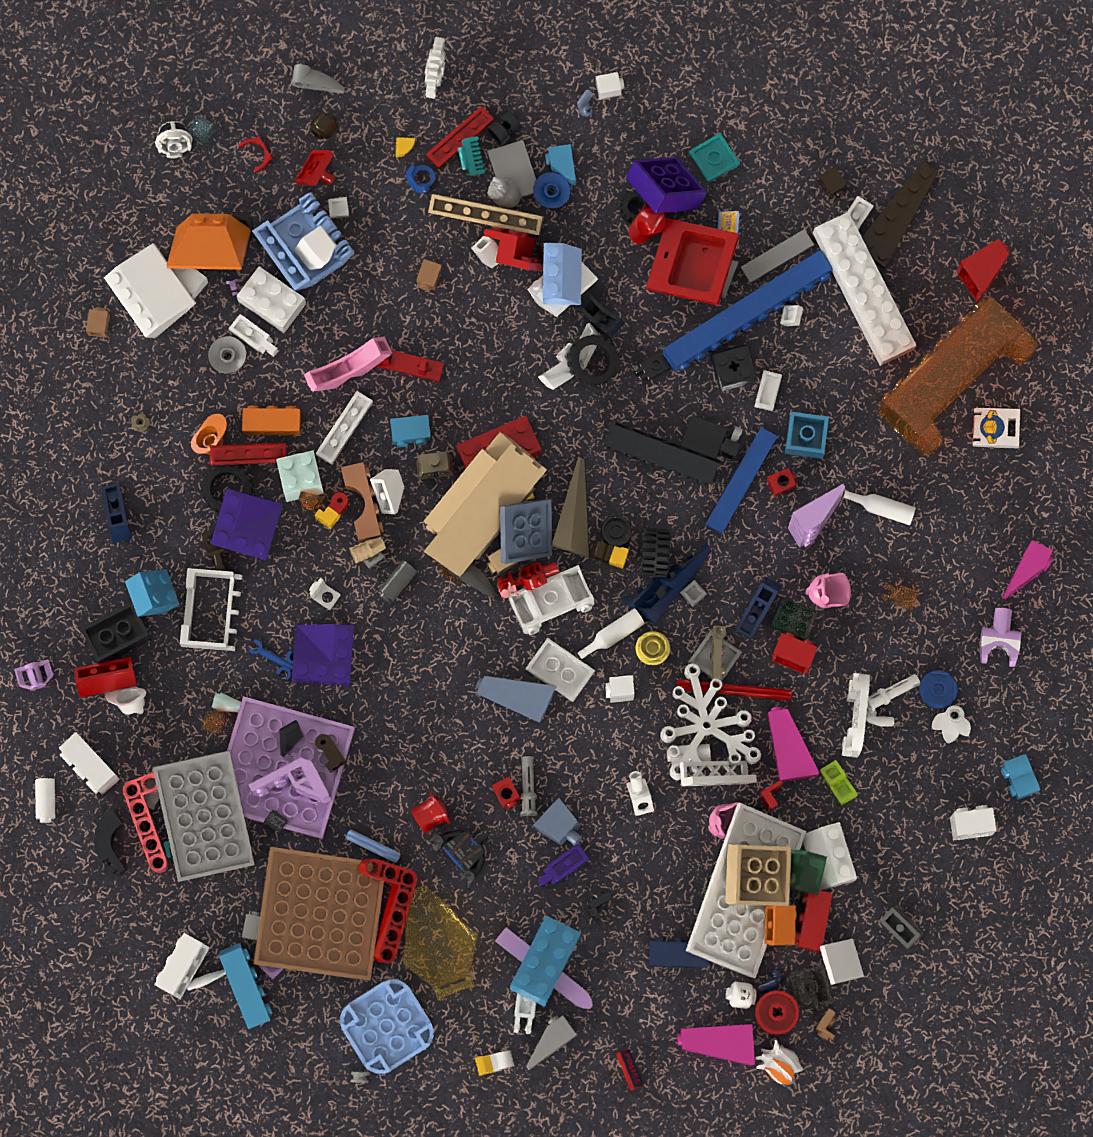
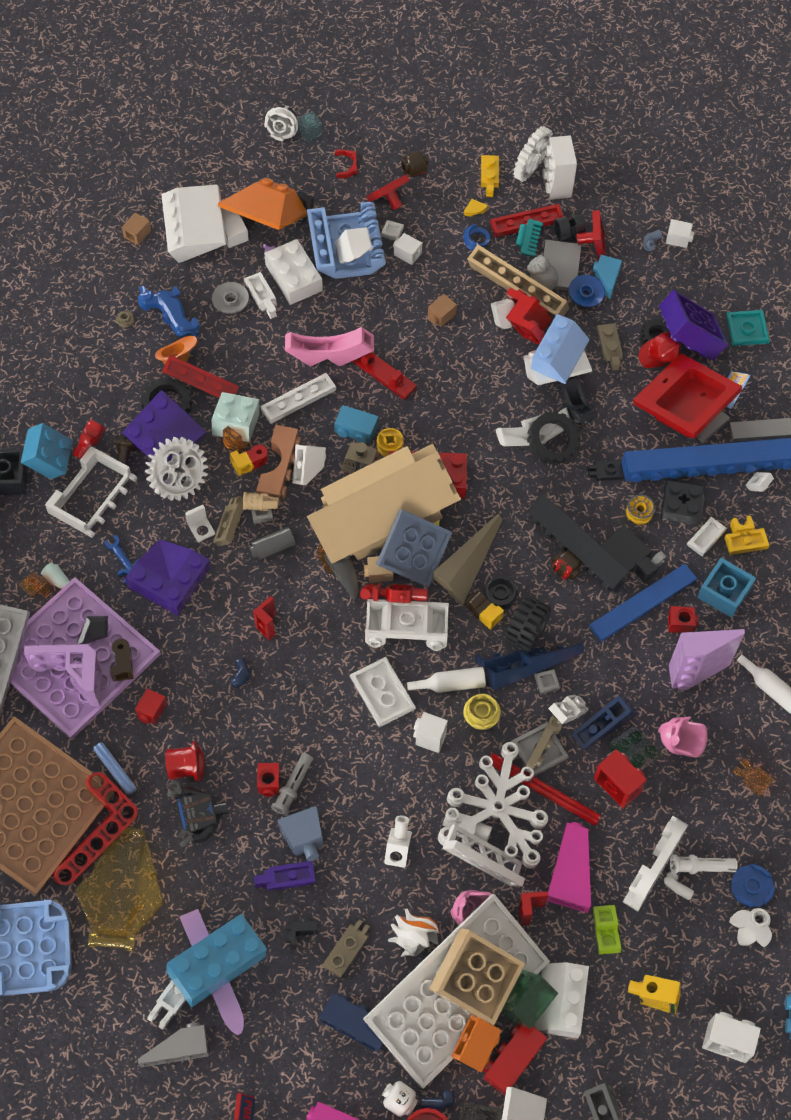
camera: 25 degrees right, 15 degrees down
(116, 513) = (57, 379): dark blue slope -> none
(180, 393) = (171, 308): none -> blue animal
(180, 558) = (89, 437): none -> red animal
(271, 421) = (237, 364): orange brick -> none
(276, 821) = (37, 700): black sticker -> none
(278, 554) = (160, 466): none -> white gear
(311, 79) = (420, 127): light grey piece -> none
(348, 578) = (229, 522): none -> dark tan hinge
(363, 223) = (407, 248): none -> white brick
(374, 779) = (150, 707): none -> red brick
(399, 99) = (489, 173): none -> yellow plate
(429, 659) = (263, 618): none -> red panel
(435, 712) = (242, 674): none -> dark blue arm
(455, 438) = (389, 435): none -> yellow wheel
(467, 71) = (560, 167): none -> white brick
(494, 1062) = (109, 1040): leg -> none
(520, 696) = (331, 695): sand blue slope -> none
(535, 129) = (596, 237): none -> red tile
(598, 235) = (610, 344): none -> dark tan hinge
(641, 900) = (346, 949): none -> dark tan hinge
(661, 479) = (566, 565): none -> dark brown head
(689, 862) = (414, 933): none -> white hair
(699, 385) = (643, 503): none -> yellow wheel
(723, 610) = (569, 708): none -> white slope
(802, 376) = (745, 538): none -> yellow plate
(909, 816) = (666, 995): none -> yellow torso

